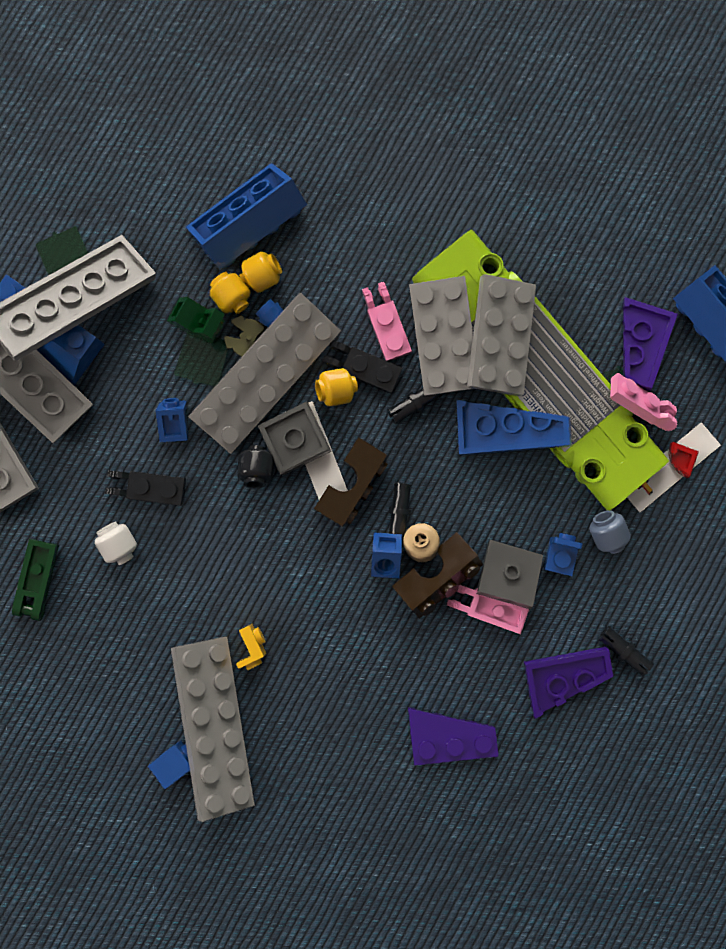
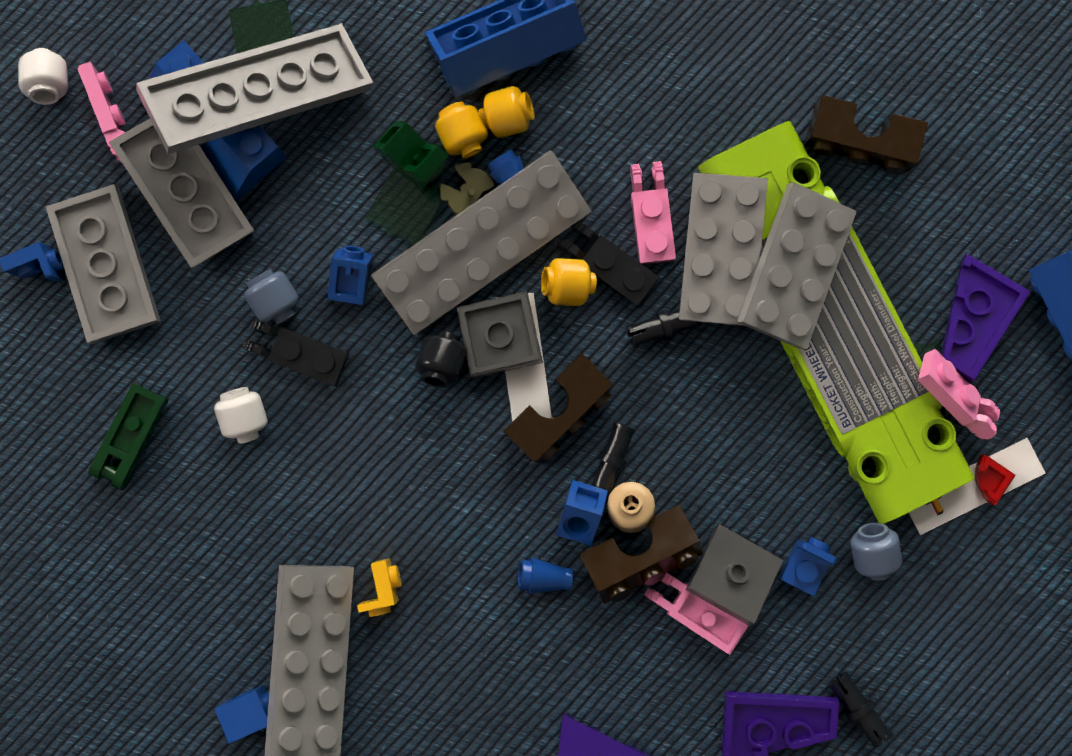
camera: 15 degrees right, 0 degrees up
(117, 450) = (271, 296): none -> sand blue head
(369, 609) = (541, 576): none -> blue cone
(507, 230) = (835, 132): none -> dark brown arch
(507, 429) = (771, 387): blue wing -> none

